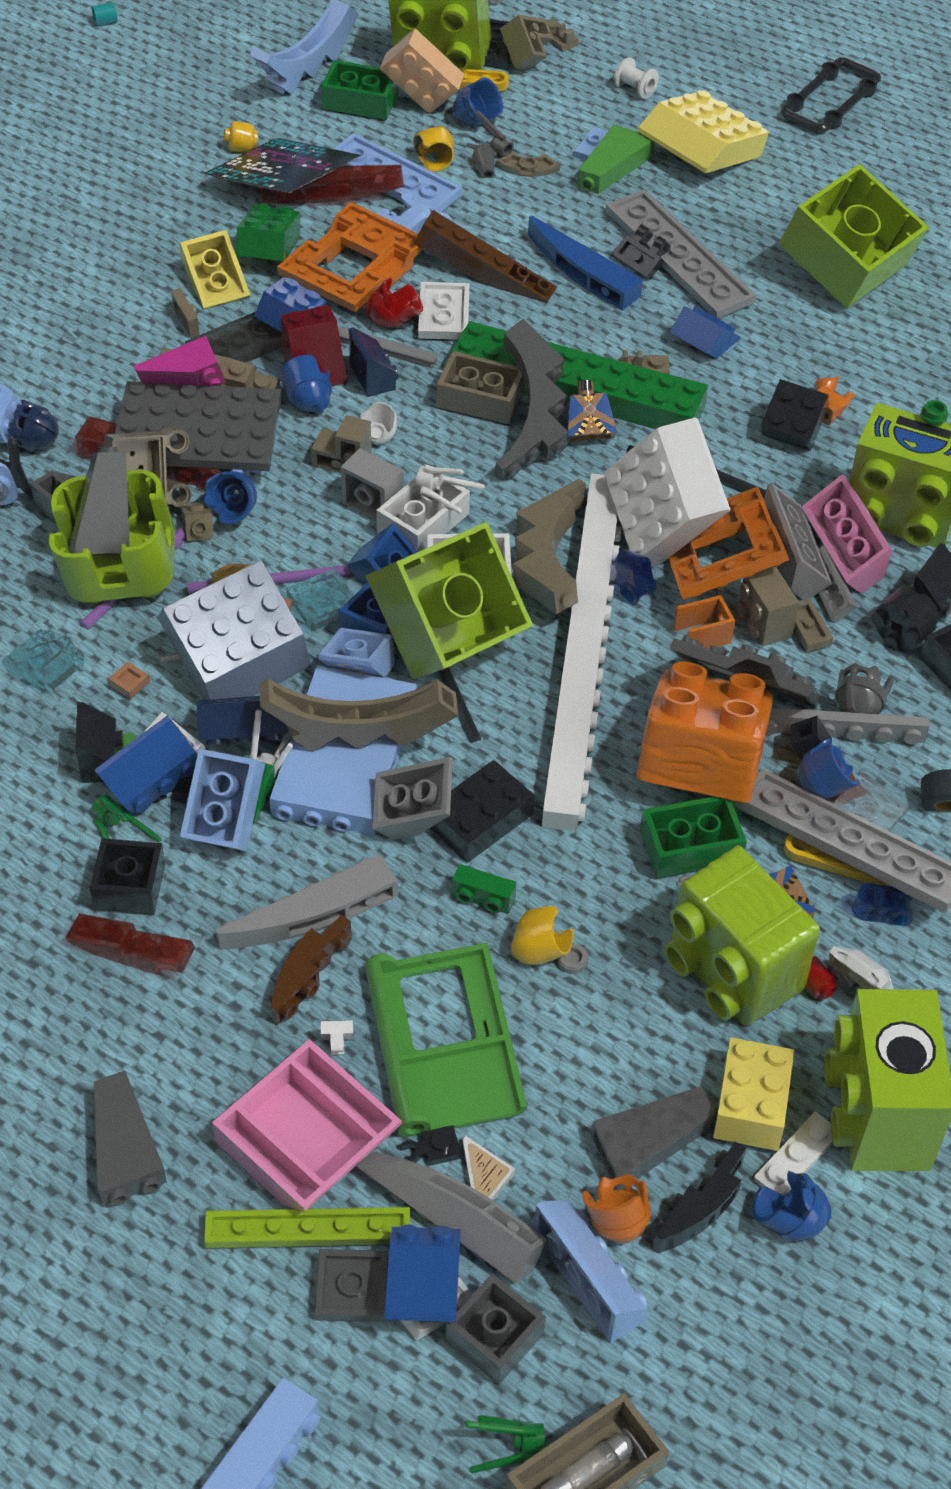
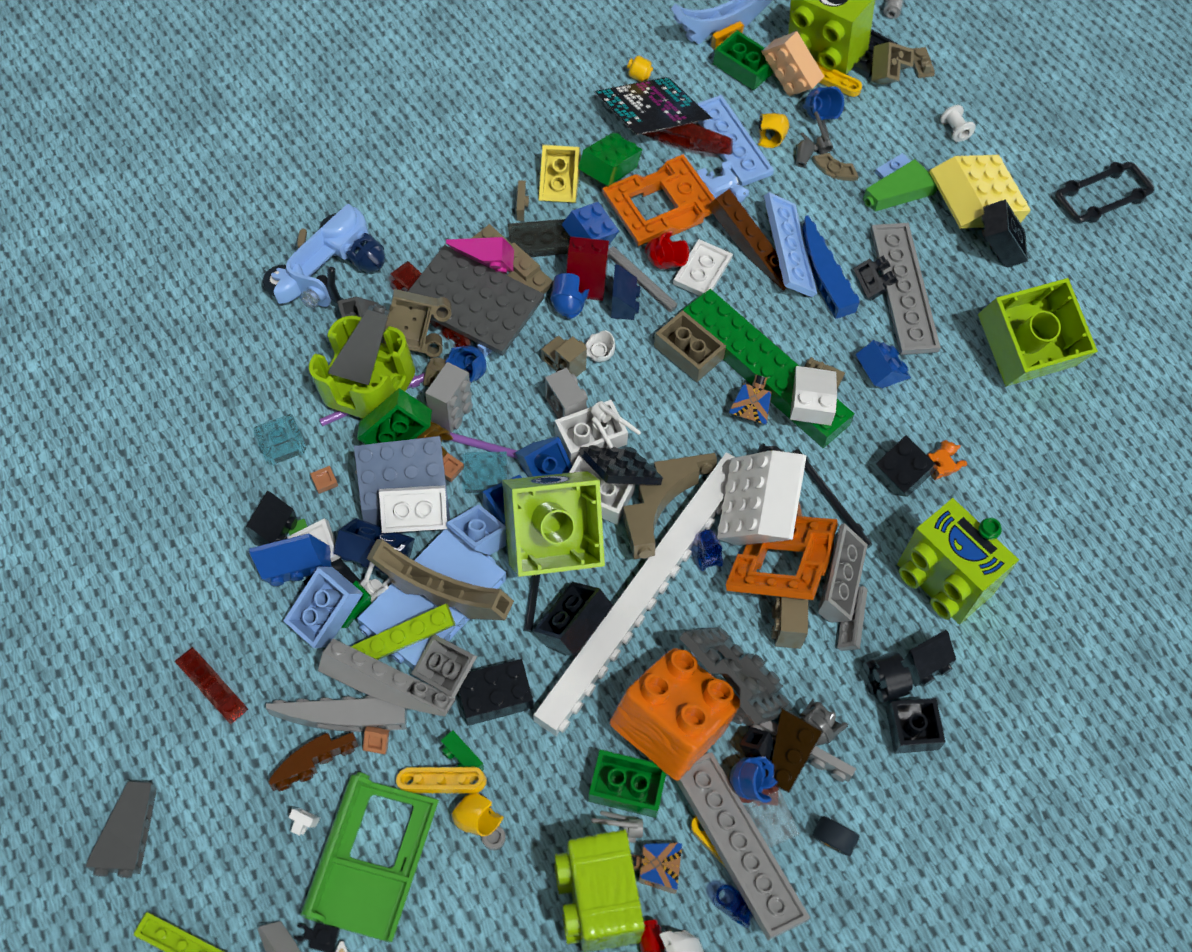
camera: 25 degrees right, 10 degrees up
(110, 813) = (253, 579): green plant -> none
(127, 876) = (236, 634): black brick -> none
(187, 568) = (395, 419): none -> green brick
(238, 525) = (449, 397): none -> light grey brick
(270, 652) = (413, 509): none -> white plate
(303, 1127) = (238, 885): bright pink slope -> none
(317, 75) = (720, 36): none -> light orange plate
(327, 803) = (407, 633): none -> lime plate
(343, 843) = (381, 680): none -> light grey slope
(371, 917) = (376, 740): none -> nougat plate
(479, 918) = (441, 779): none -> yellow plate
(500, 522) = (620, 465): none -> black plate
(526, 698) = (573, 618): none -> black brick
(529, 252) = (790, 245): none -> light blue plate
(540, 369) = (708, 401): dark grey arch -> none
(657, 380) = (814, 395): none -> white slope
(704, 612) = (743, 602): orange piece -> none
(758, 159) = (1005, 233): none -> black brick
(811, 627) = (817, 646): dark tan plate -> none
(849, 534) = (884, 586): bright pink slope -> none
(851, 722) = (792, 748): none -> dark brown wing

